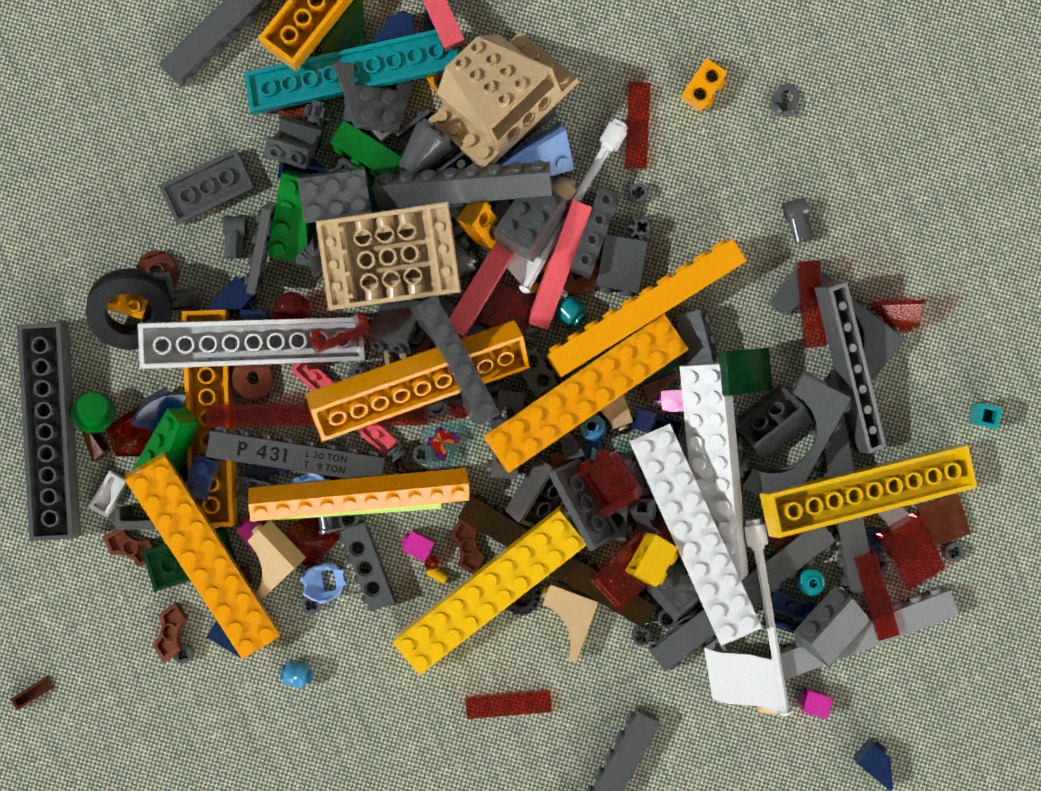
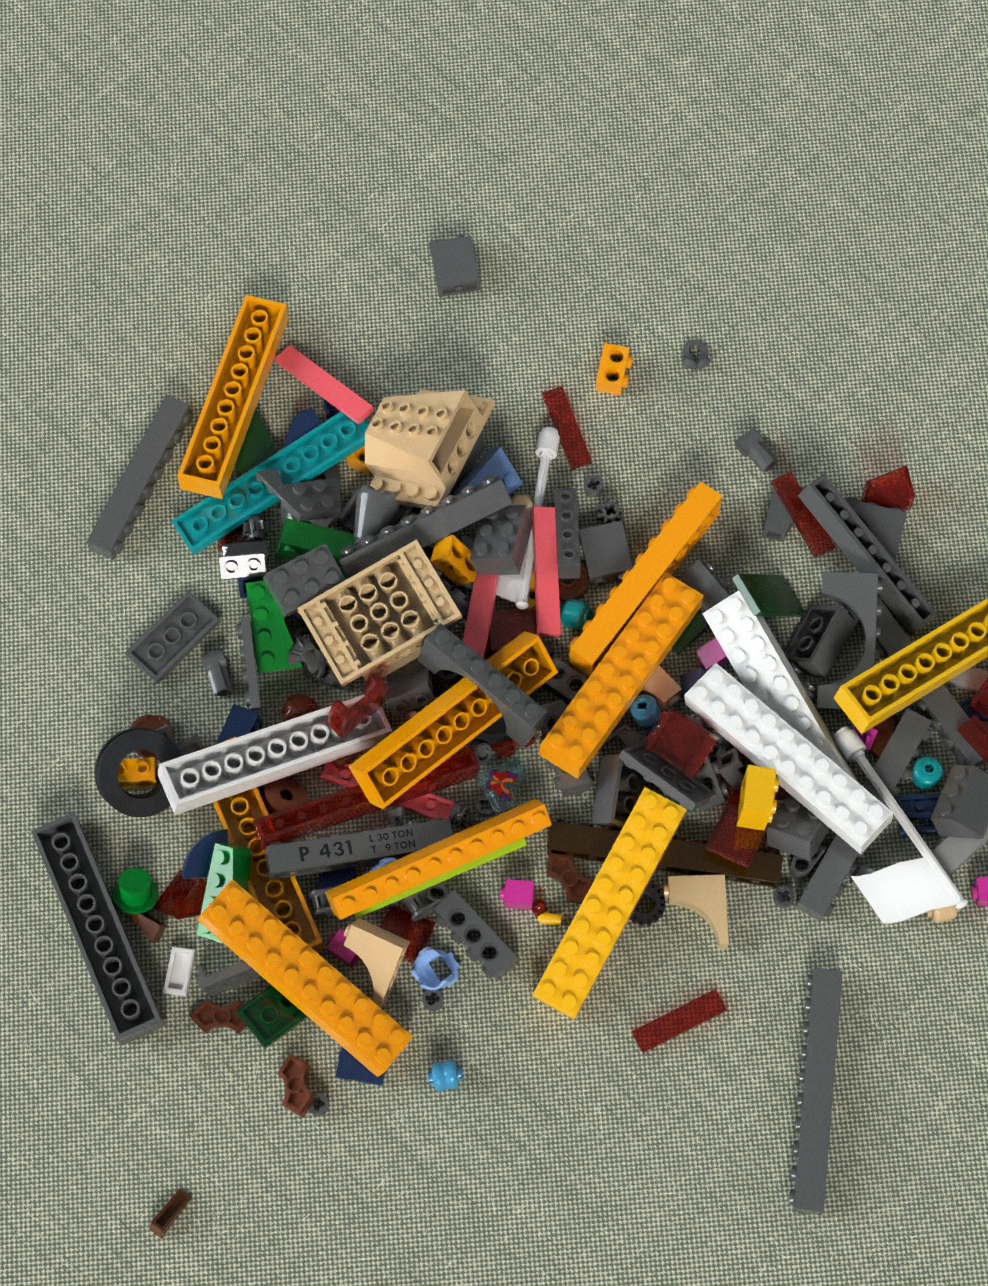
camera: 20 degrees left, 20 degrees down
(202, 475) = (274, 894): dark blue slope -> none
(655, 387) = (688, 653): reddish brown piece -> none

